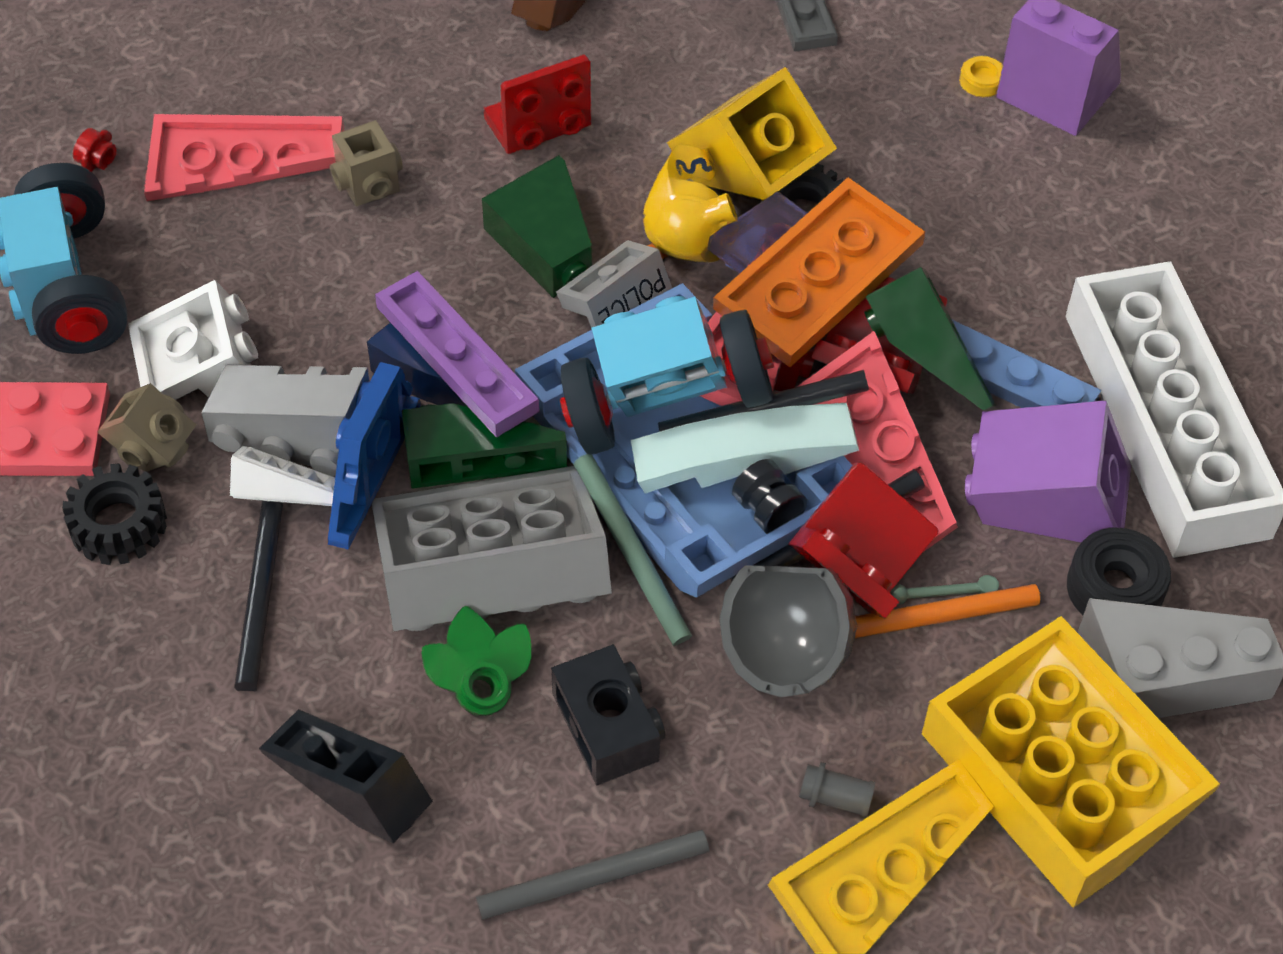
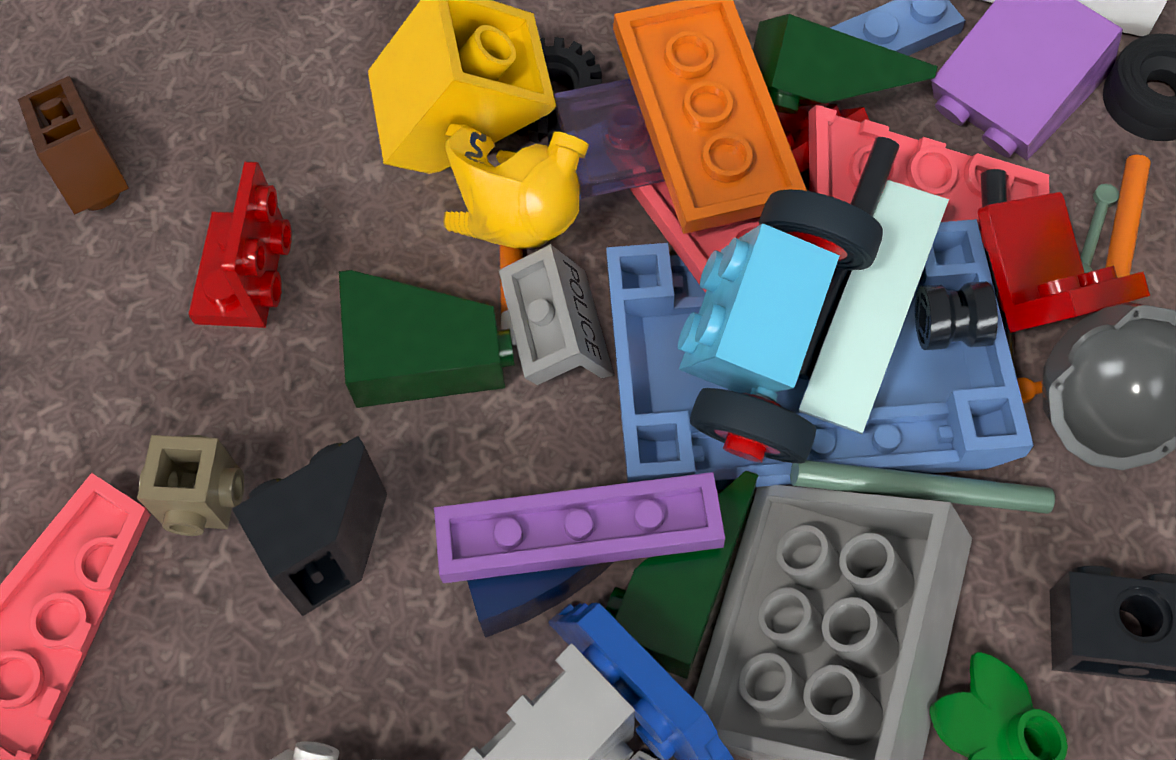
camera: 55 degrees left, 10 degrees up
(375, 233) = (316, 524): none -> black slope

